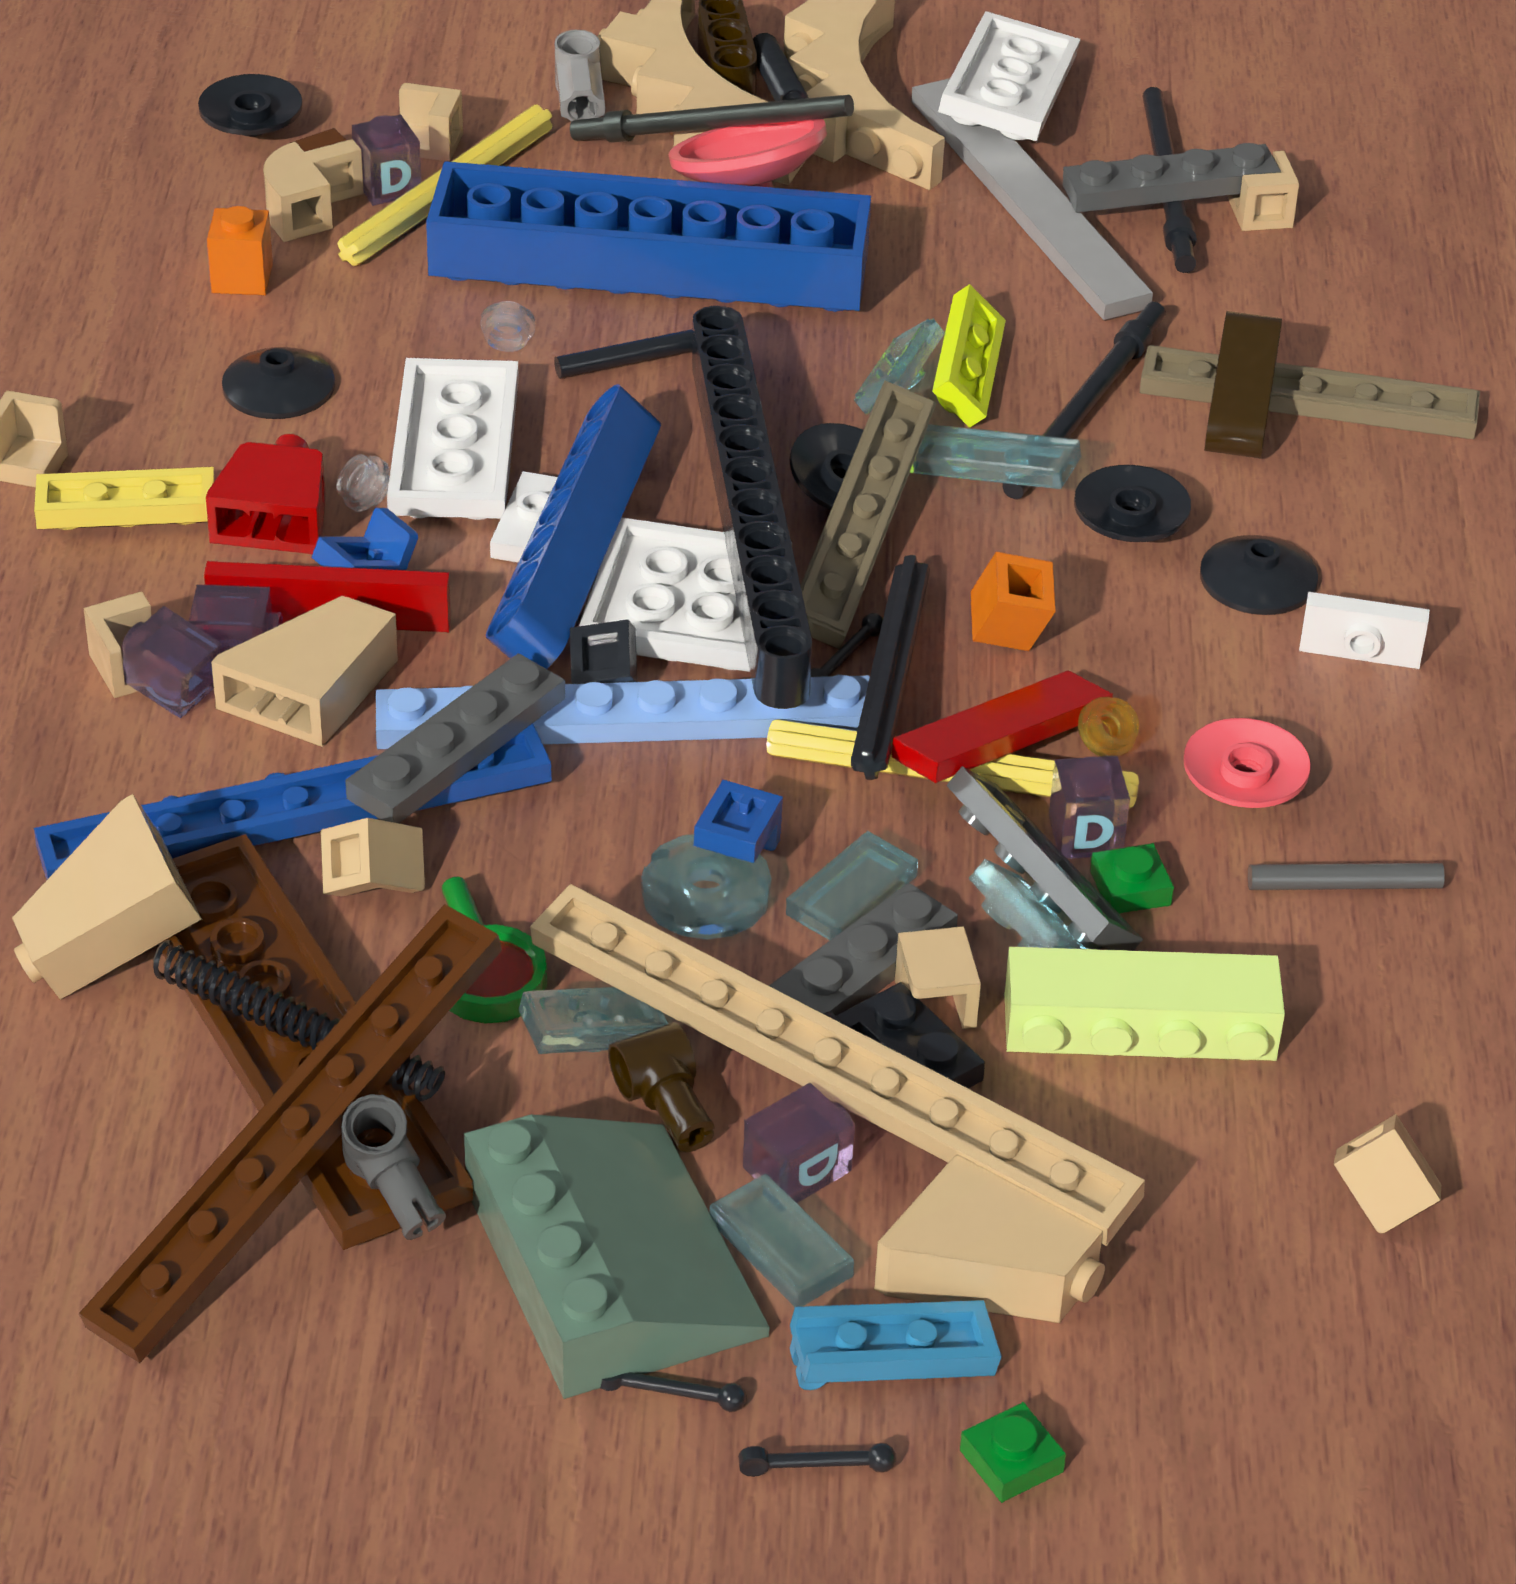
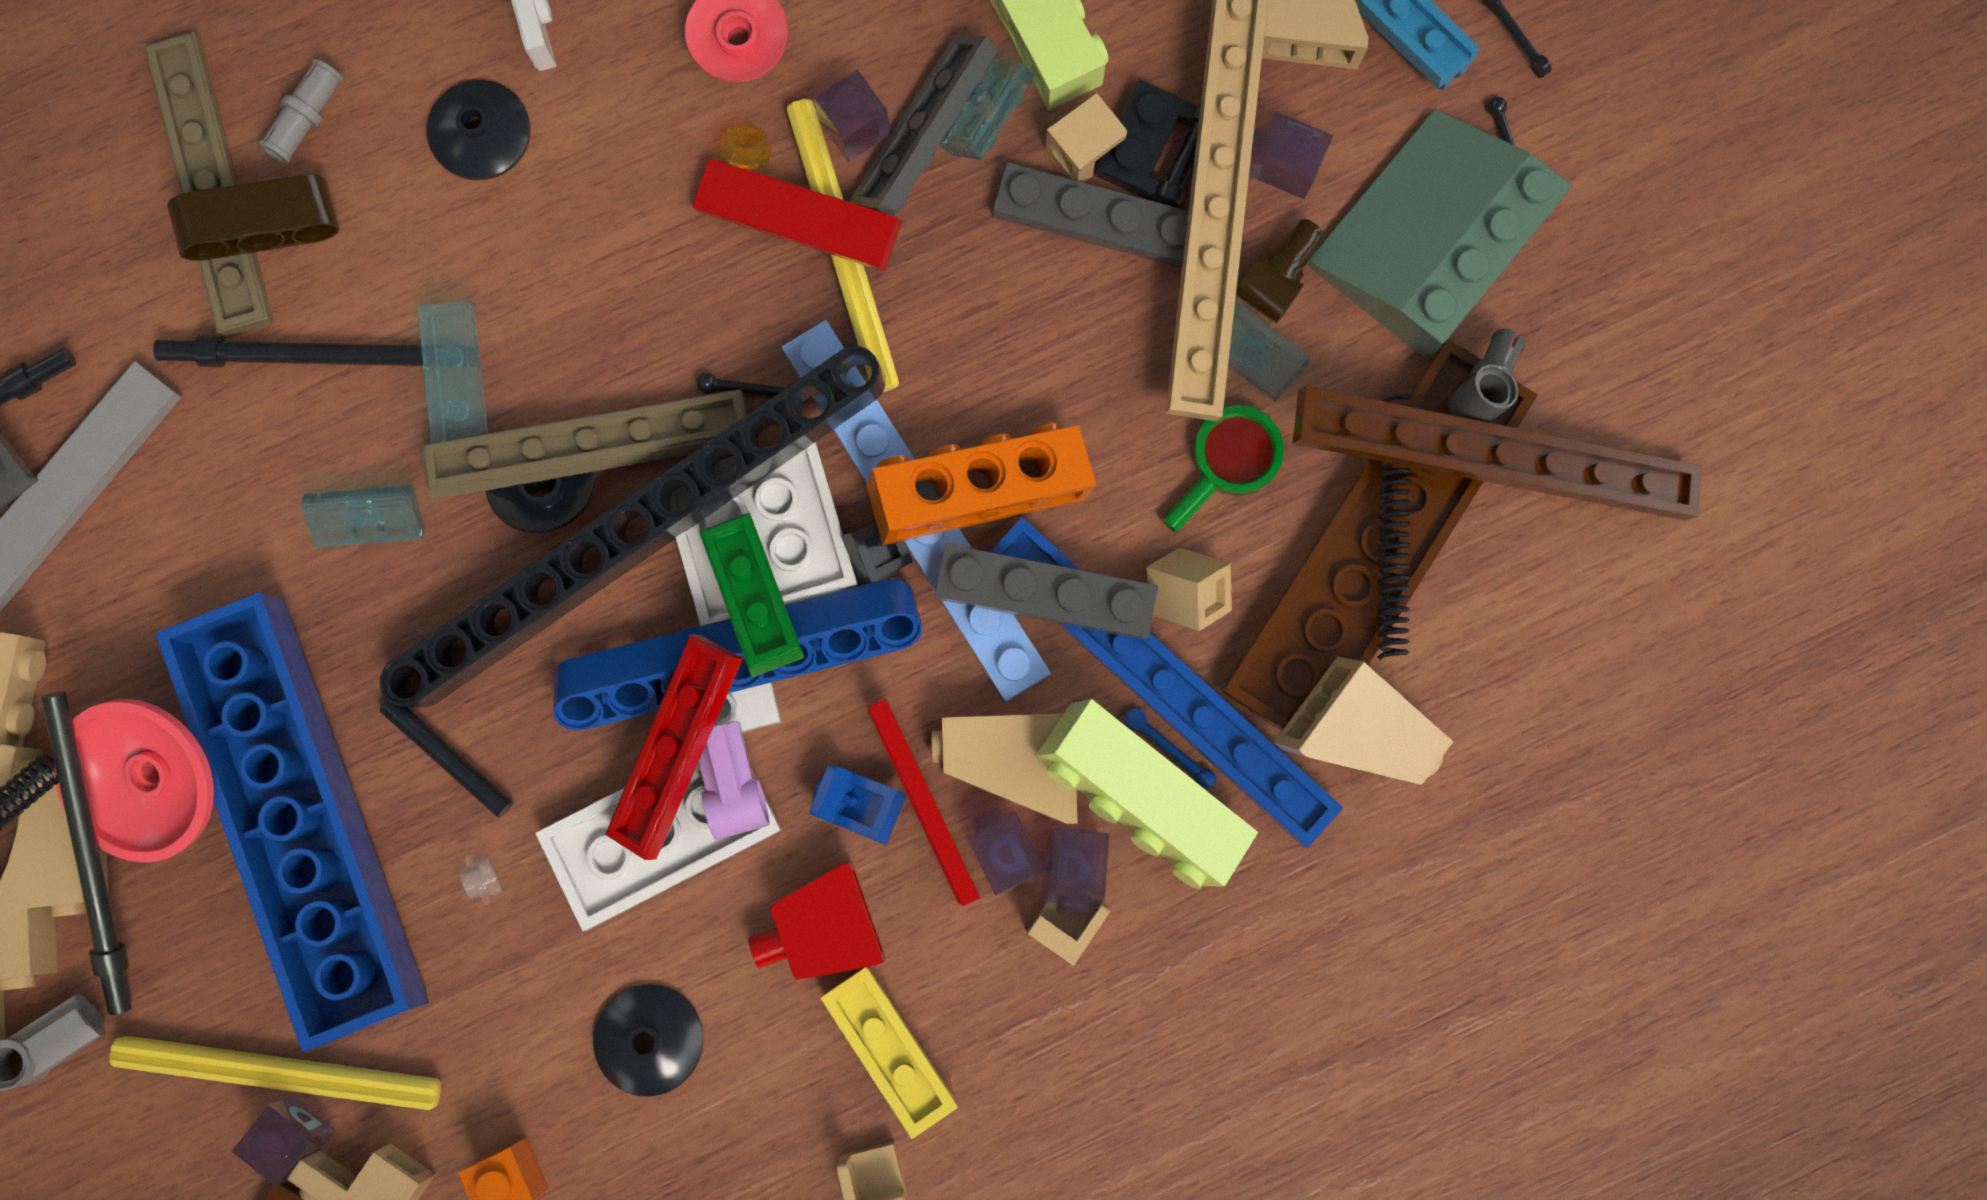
camera: 120 degrees left, 40 degrees up
(193, 711) = (1146, 795): none -> yellowish green brick
(363, 482) = (763, 866): clear plate -> none
(434, 118) = (193, 1147): tan panel -> none
(441, 459) = (732, 794): none -> lavender piece
(518, 428) = (673, 747): none -> red tile
(616, 692) = (906, 515): none -> orange brick
(621, 529) = (751, 595): none -> green tile
(698, 911) = (1060, 383): clear light blue tile -> none
(740, 822) = (1015, 343): blue bracket -> none
(782, 1241) = (1360, 138): clear light blue tile -> none
(851, 885) = (1011, 252): clear light blue tile -> none
(890, 668) = (770, 328): black axle -> none
(969, 356) = (316, 467): neon yellow plate -> none
(1012, 601) = (653, 266): orange brick -> none
(1132, 503) = (443, 228): black dish -> none
(1132, 878) = (893, 70): green plate -> none
(1346, 459) = (300, 111): none -> light grey pin

